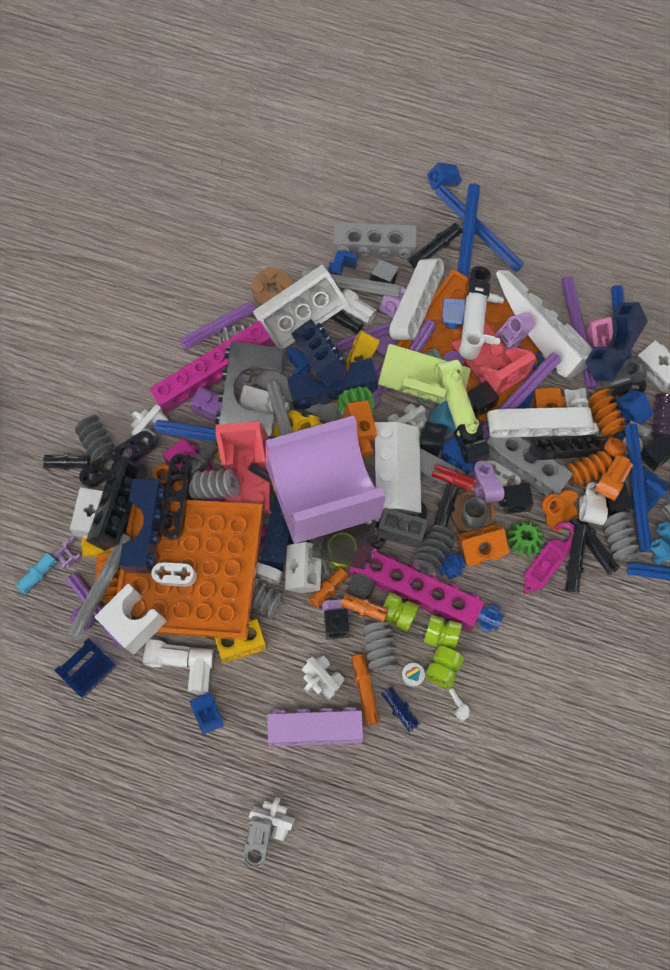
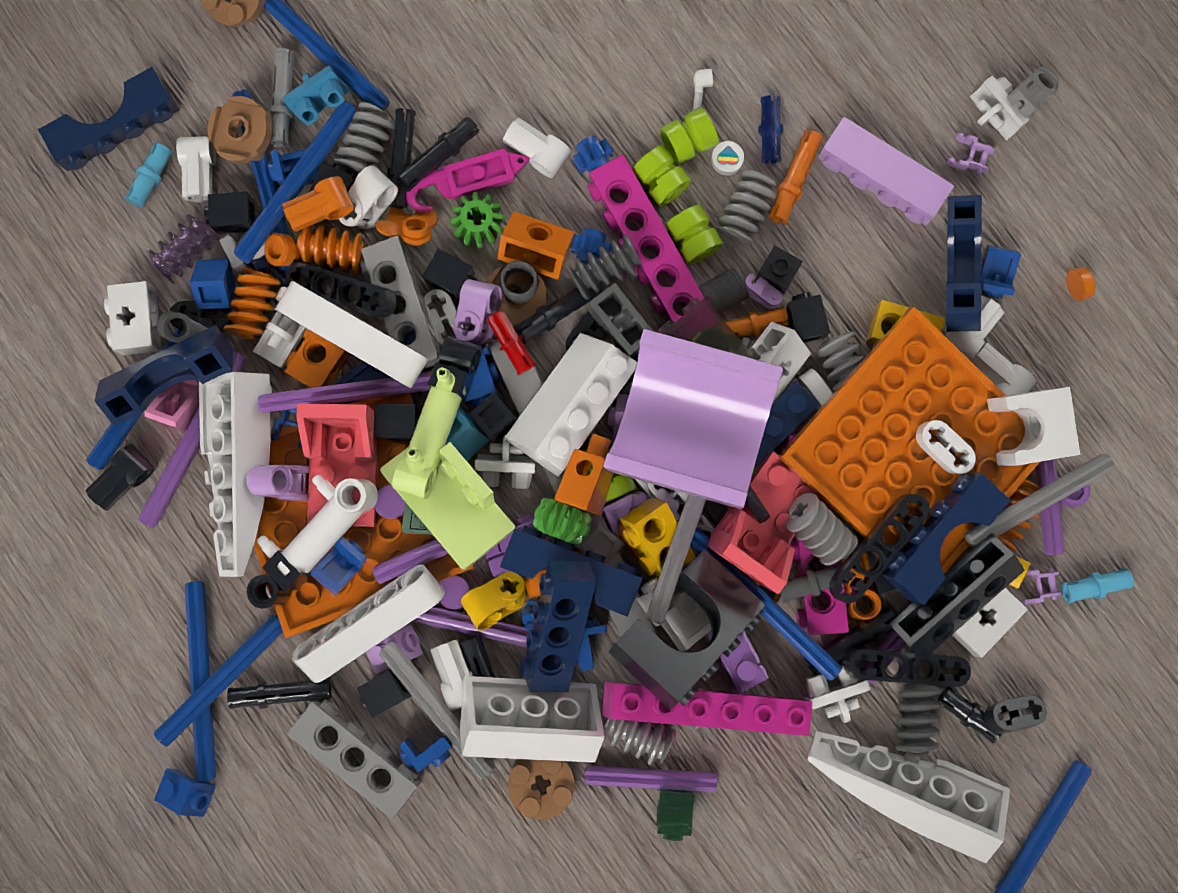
camera: 140 degrees left, 15 degrees up
(38, 471) = (1017, 720): none -> black beam
(63, 405) = (921, 795): none -> white wedge
(90, 673) = (1108, 413): clear blue plate -> none
(151, 741) = (1080, 283): none -> orange tile
(157, 456) = (863, 633): none -> black pin
(193, 314) = (674, 813): none -> clear green brick
(240, 716) = (964, 263): none -> dark blue arch
(262, 788) = (974, 146): none -> lavender piece
(300, 609) = (807, 317): none -> black brick
(319, 679) = (834, 209): white hips -> none
(364, 607) = (737, 257): orange pin -> none
(520, 602) = (544, 151): none -> white piece
(598, 293) = (126, 471): none -> black piece

